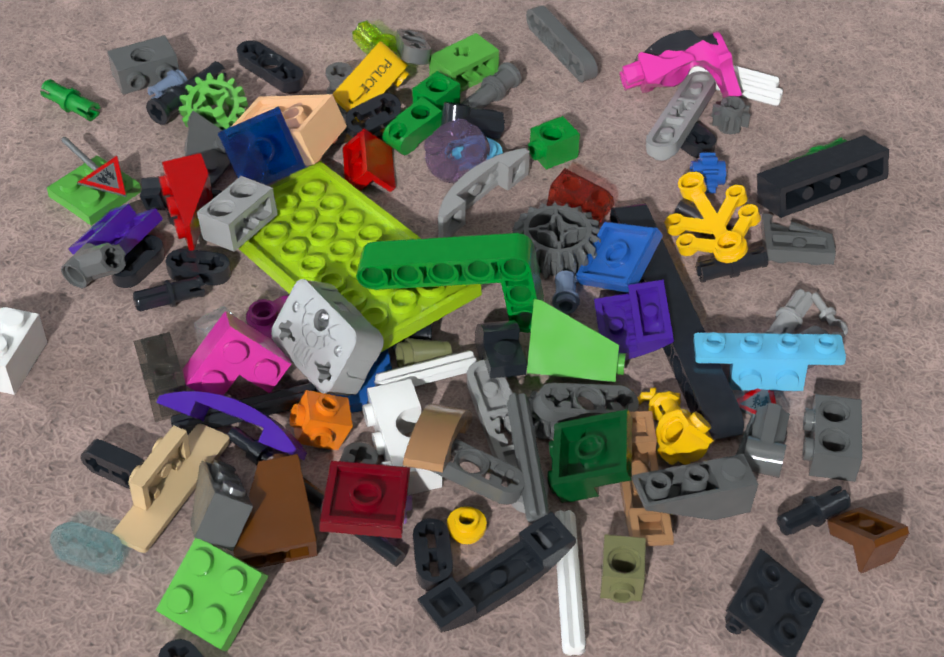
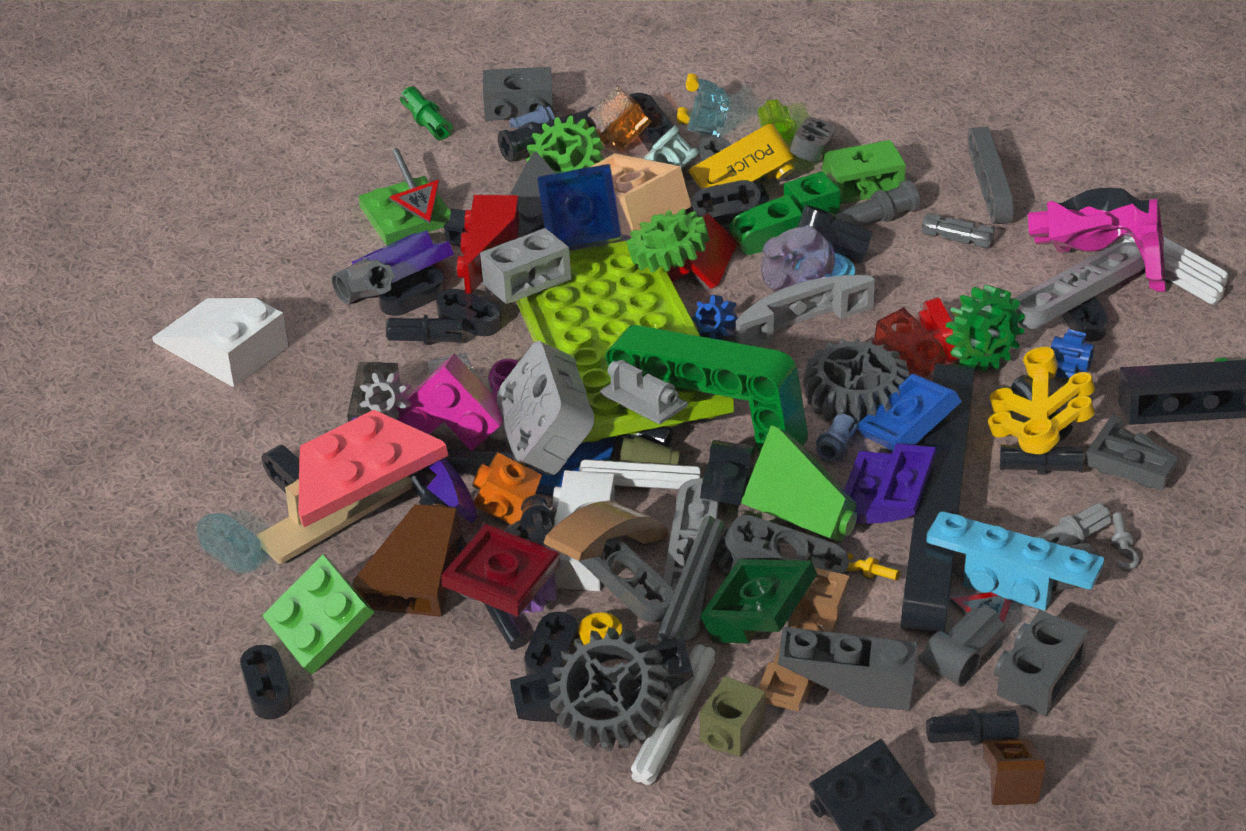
camera: 25 degrees right, 5 degrees down
(180, 377) = (397, 390): none -> light grey gear
(190, 436) = (359, 462): none -> coral wing
(219, 505) = (361, 534): dark grey slope -> none
(244, 65) = (619, 118): none -> clear orange brick
(302, 82) = (672, 149): none -> light aqua piece
(312, 40) = (708, 109): none -> clear light blue piece
(348, 160) = (668, 240): none -> bright green gear
(370, 441) = (536, 518): none -> black axle
(418, 304) = (641, 394): none -> light grey hinge
(425, 215) = (716, 318): none -> blue gear
(546, 602) = (593, 699): none -> dark grey gear
(554, 142) = (914, 279): green brick -> none
(560, 94) = (958, 230): none -> dark grey axle
(596, 172) = (934, 320): none -> red plate
(638, 168) = (985, 327): none -> green gear
(679, 433) = (871, 604): yellow connector -> none
(731, 115) = (1141, 300): dark grey gear -> none

